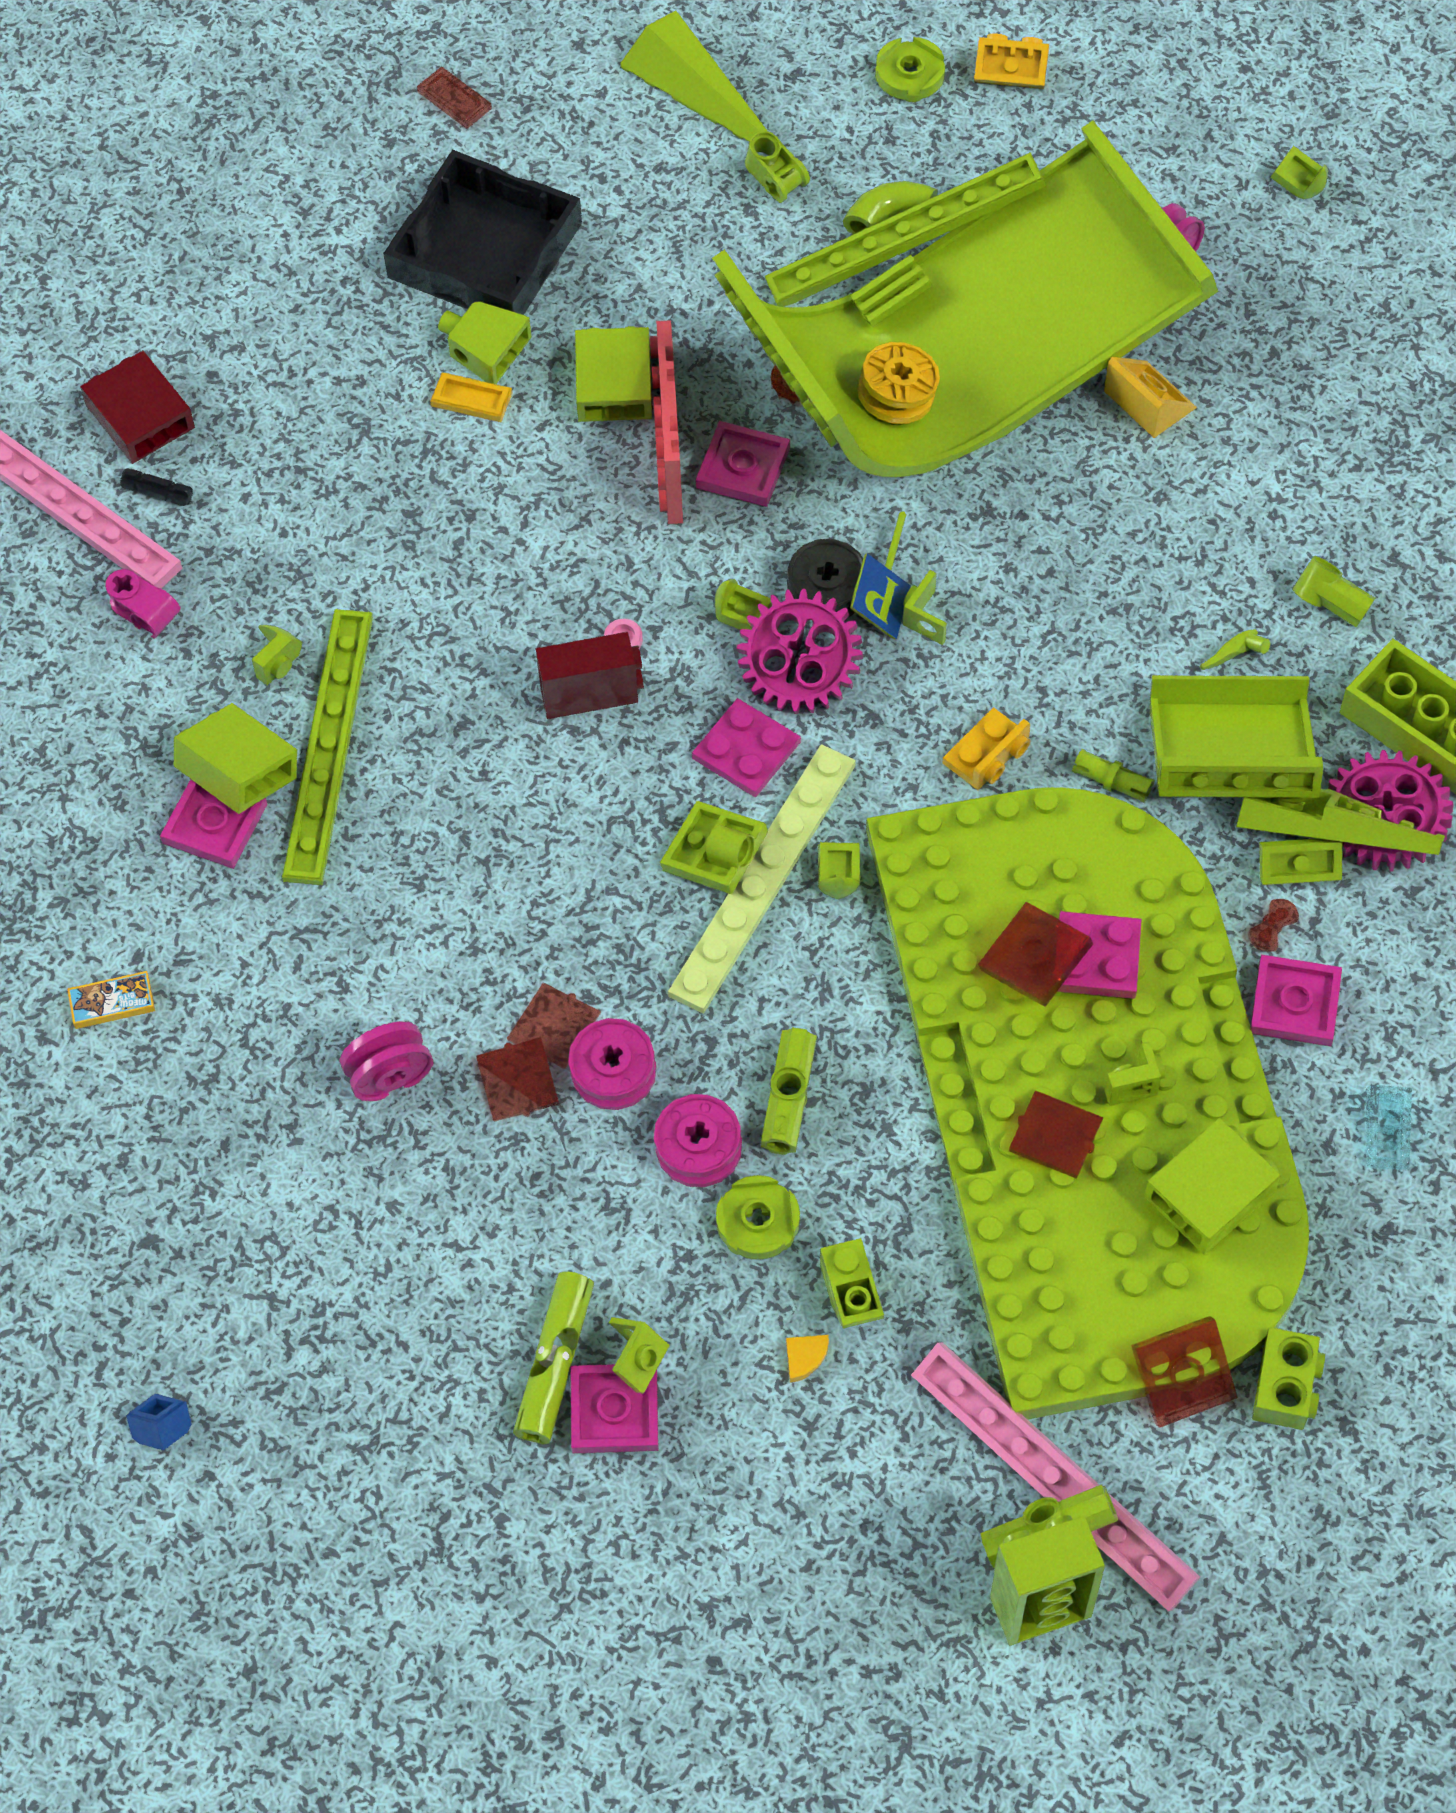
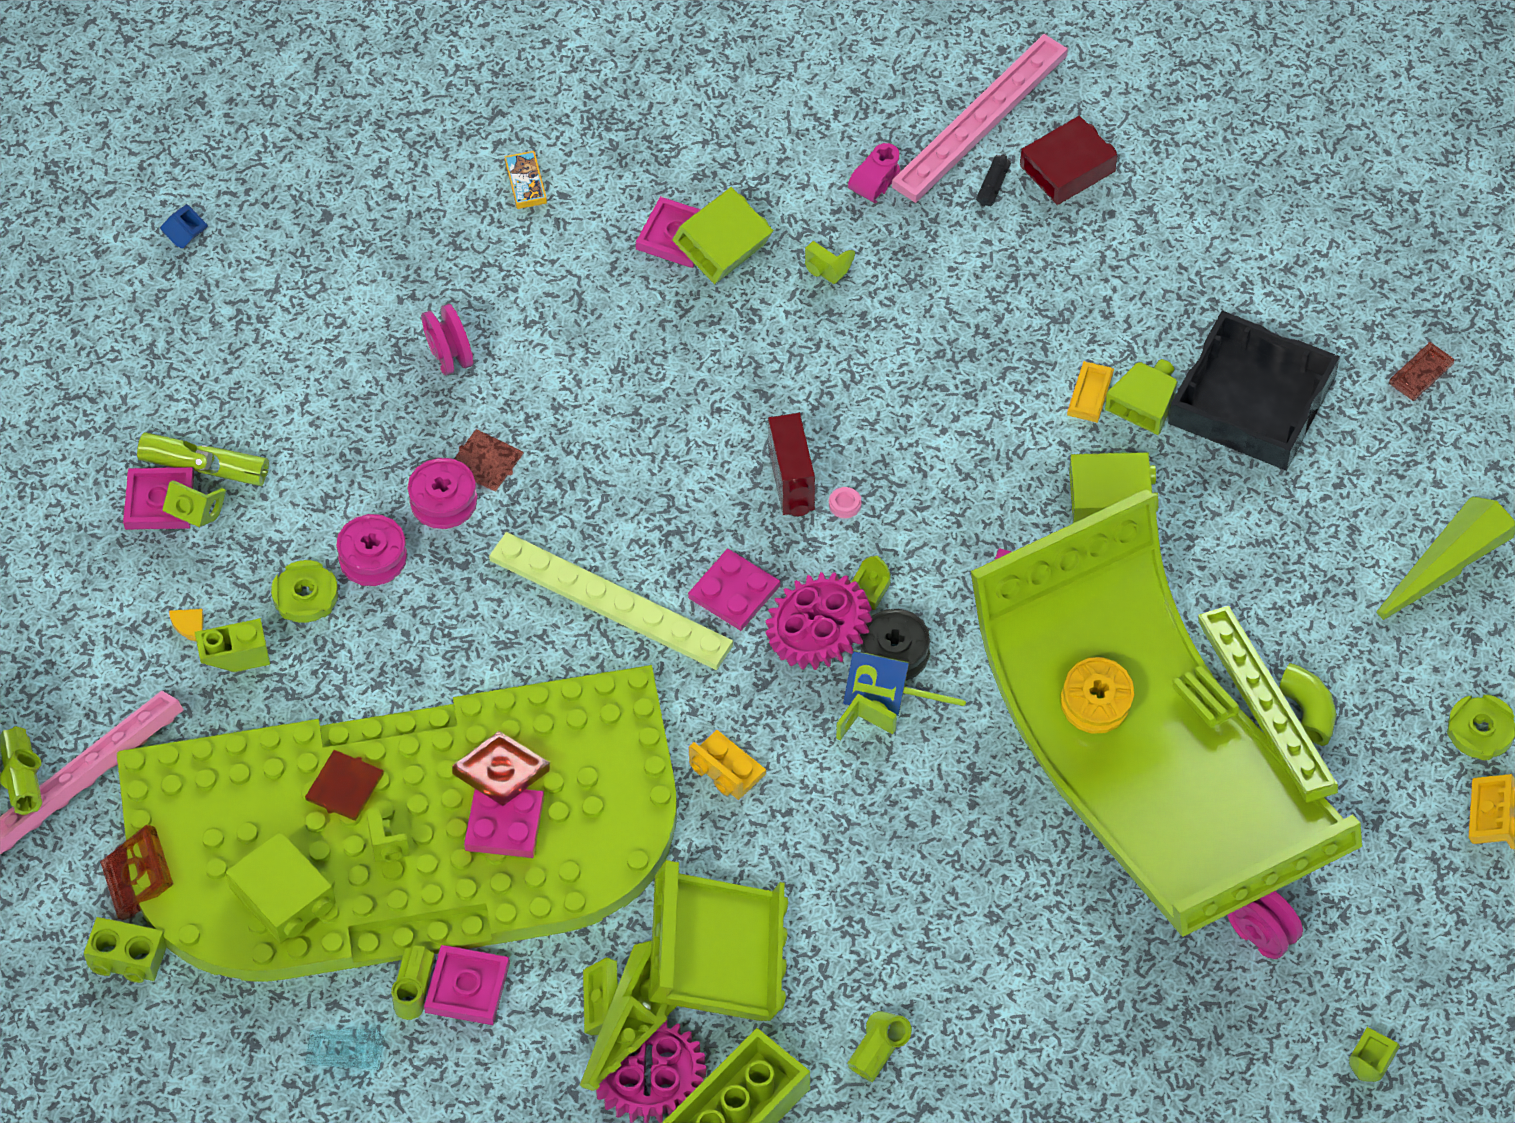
camera: 90 degrees right, 5 degrees down
(327, 748) = (746, 305): lime tile -> none
(517, 1079) = (439, 435): clear red piece -> none
(666, 424) = (1018, 517): coral wing -> none
(714, 847) = (633, 560): lime plate -> none
(779, 170) = (1345, 615): lime piece -> none
(786, 1111) = (391, 609): lime piece -> none
(838, 868) = (610, 649): lime plate -> none
(1113, 775) = (697, 856): lime pin -> none
(1145, 394) = (1102, 905): yellow slope -> none
(1236, 646) = (831, 971): lime bar -> none
(1280, 914) = (535, 970): clear red piece -> none
(1297, 1055) = (412, 981): none -> lime piece

